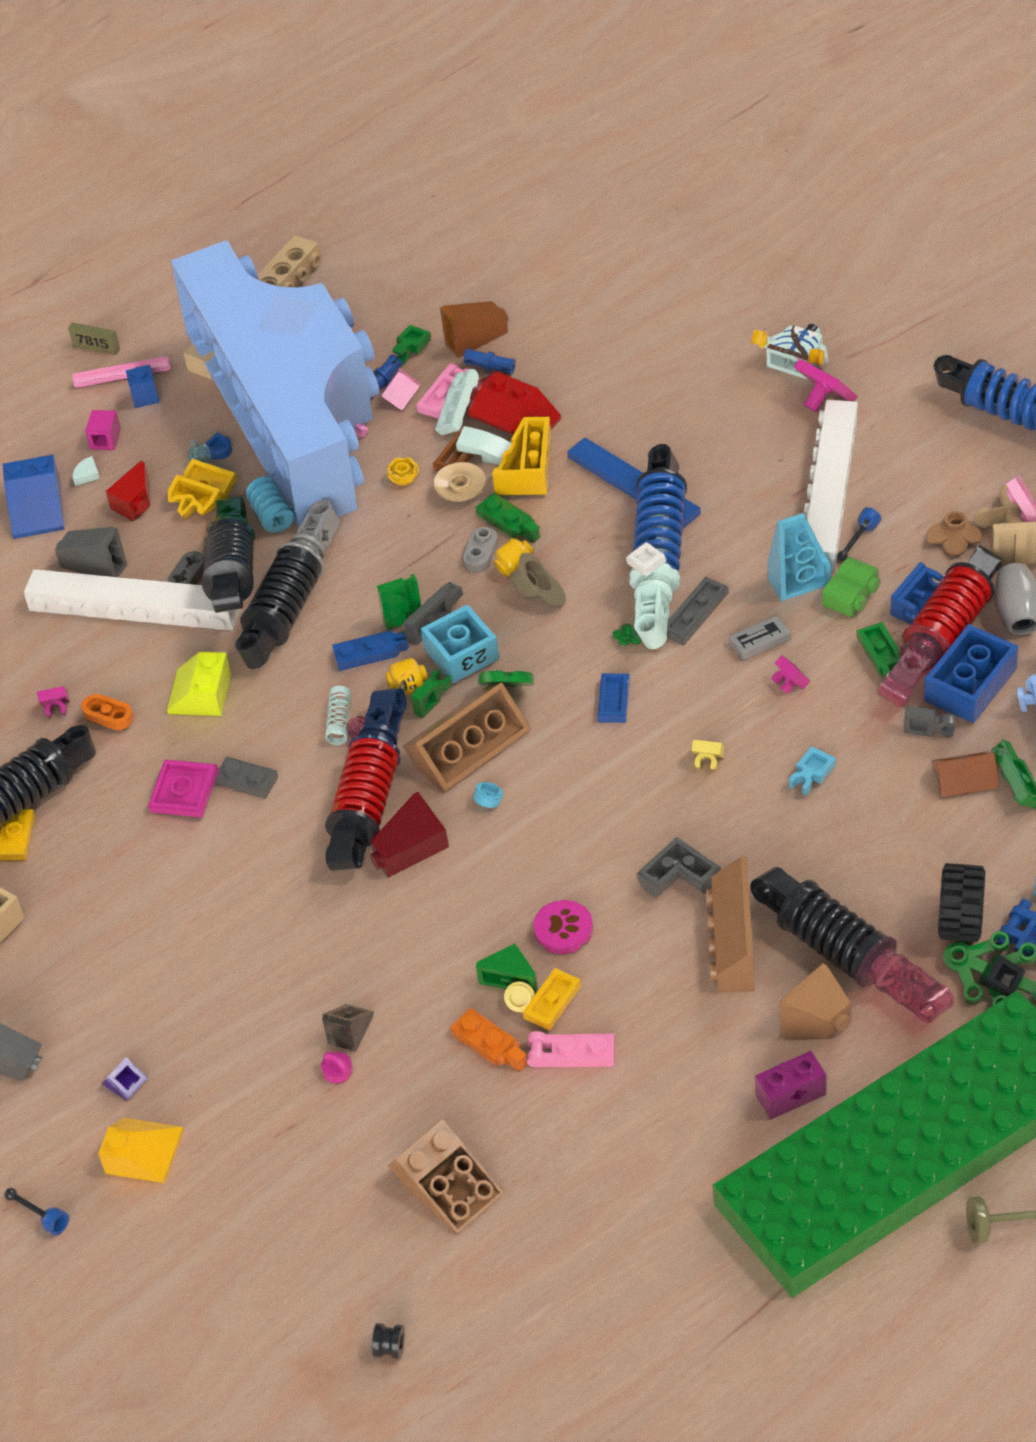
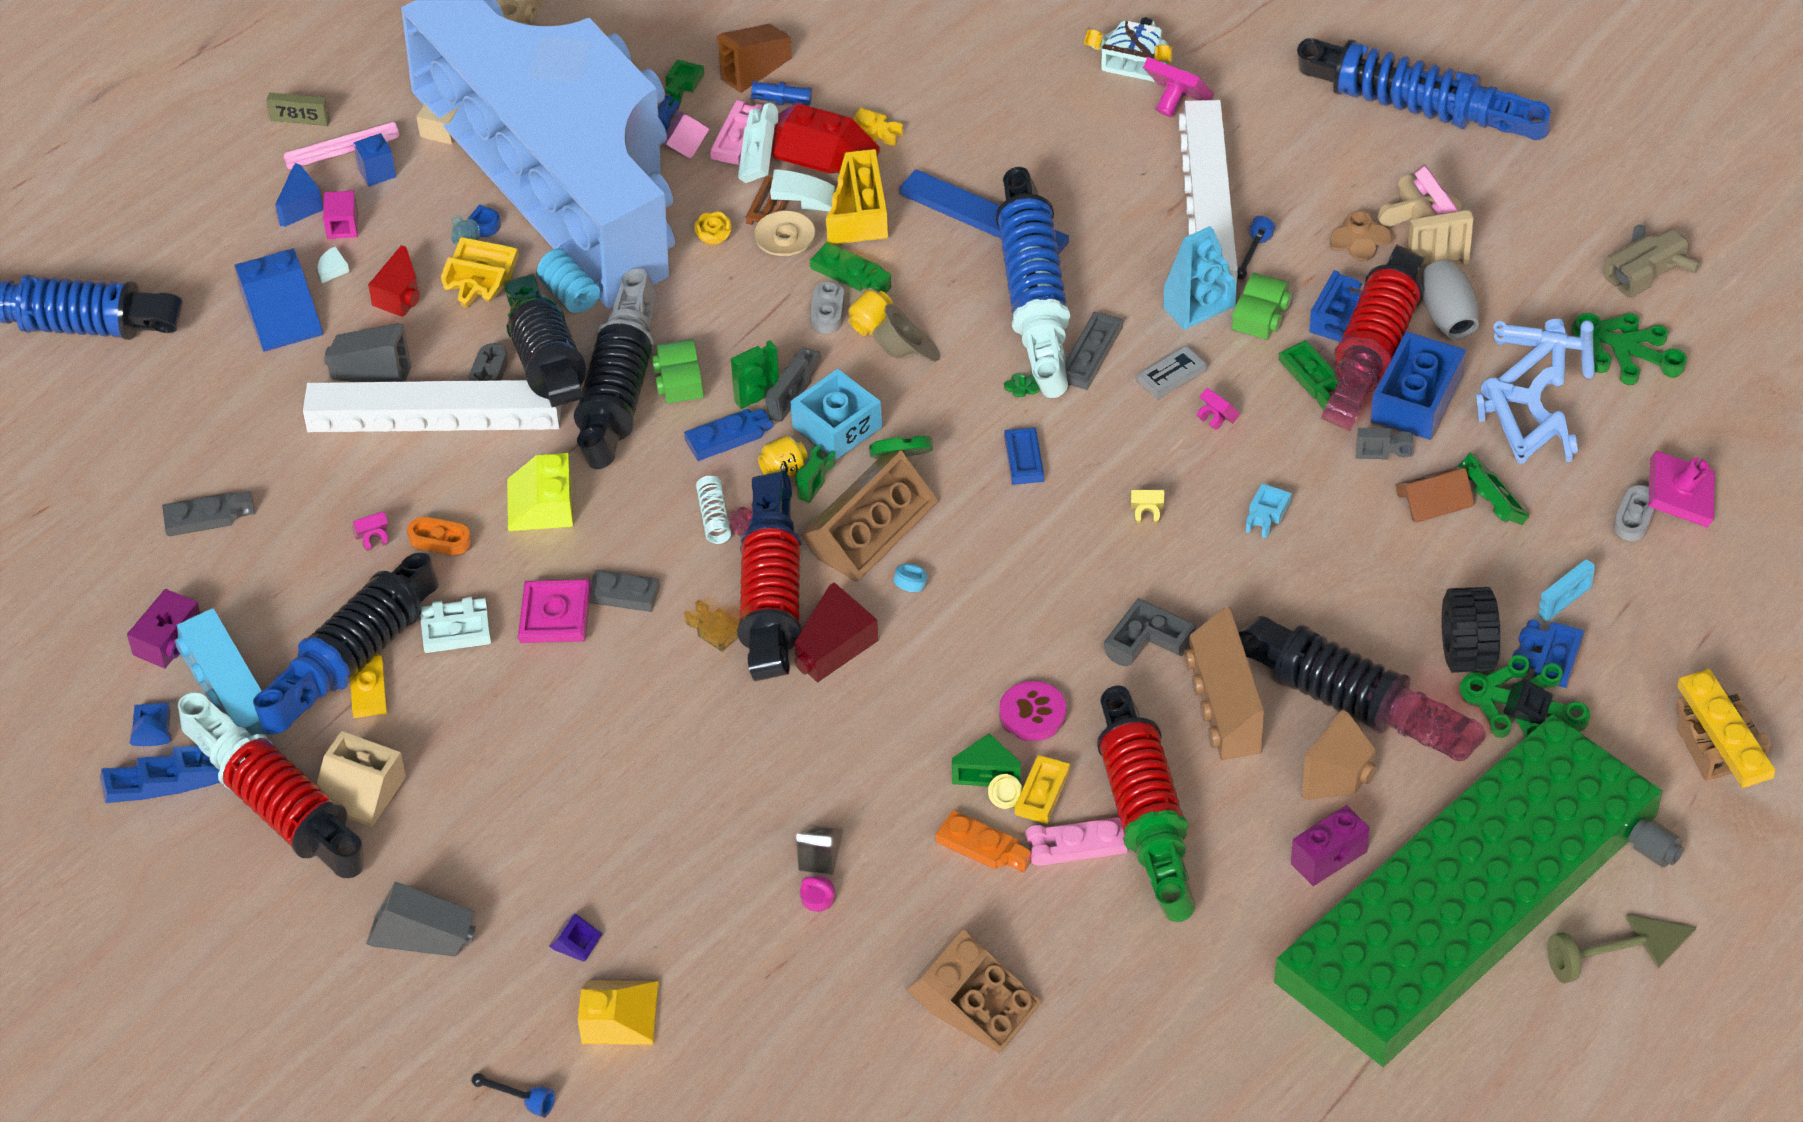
camera: 15 degrees left, 0 degrees up
(71, 412) = (298, 197): none -> blue slope
(99, 790) = (455, 624): none -> light aqua plate
(311, 817) = (715, 628): none -> clear yellow plate
(340, 592) = (679, 371): none -> bright green brick
(562, 396) = (877, 127): none -> yellow plate
(636, 1023) = (1146, 800): none -> piece
(646, 559) = (1033, 296): white tile -> none

